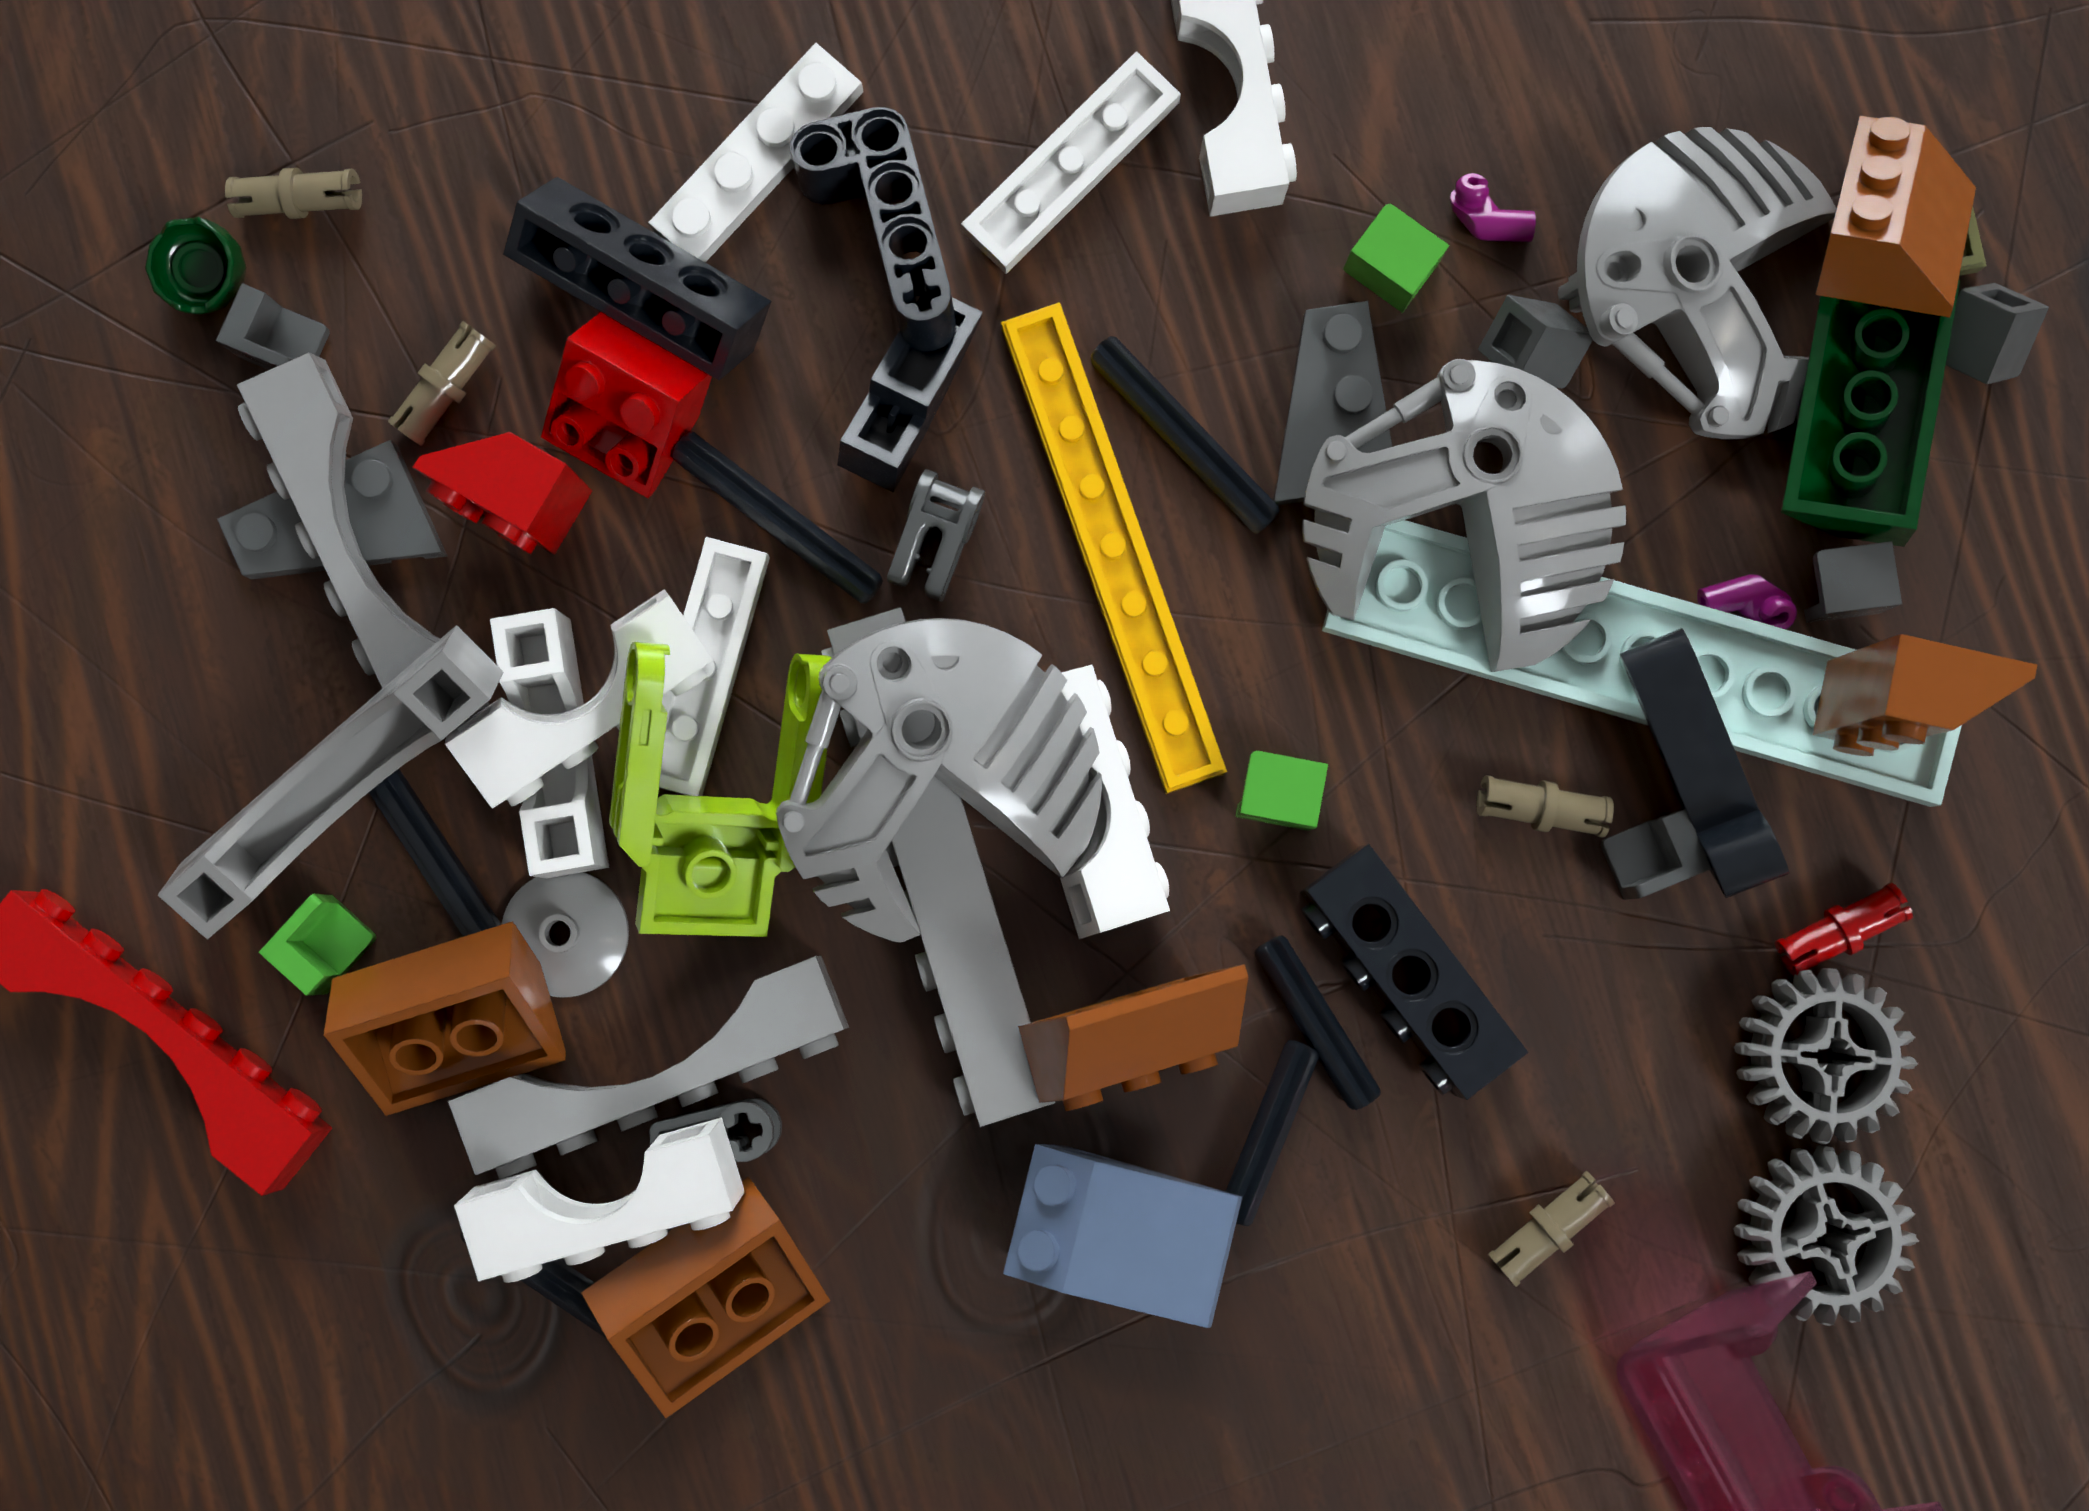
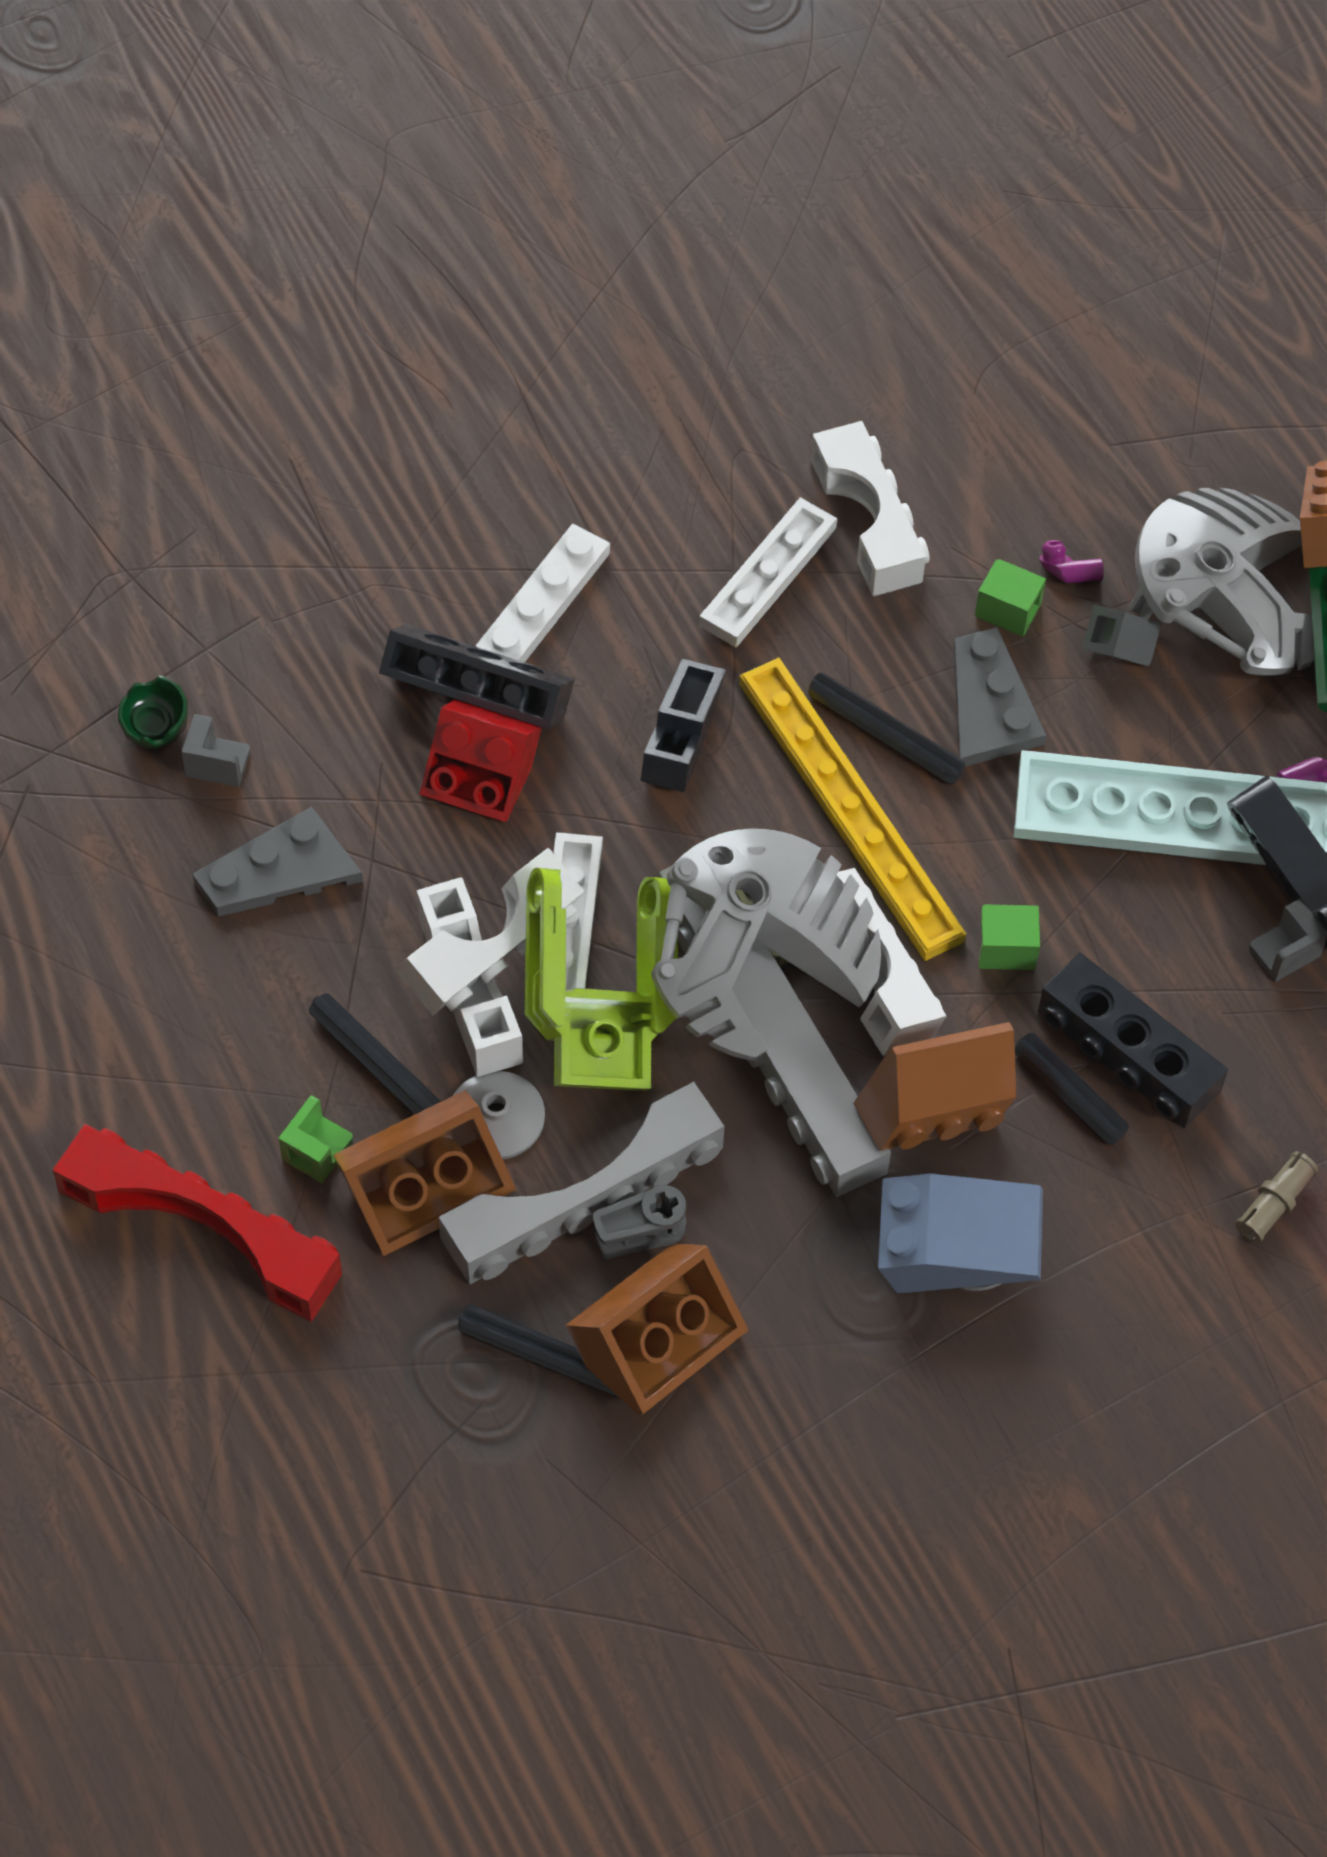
camera: 10 degrees left, 25 degrees down
(293, 193) = (214, 662): dark tan pin -> none
(307, 435) = (361, 942): light grey arch -> none
(373, 743) = (319, 1009): light grey arch -> none
(441, 383) = (343, 766): dark tan pin -> none
(513, 483) = (409, 813): red slope -> none
(525, 1222) = (514, 1287): white arch -> none
(777, 517) = (602, 818): black axle -> none
(900, 228) = (636, 586): black beam -> none
(928, 516) = (721, 797): dark grey piece -> none
(1271, 1127) = (1054, 1159): black axle -> none
(1531, 529) = (1143, 732): light grey piece -> none
(1545, 806) = (1201, 922): dark tan pin -> none

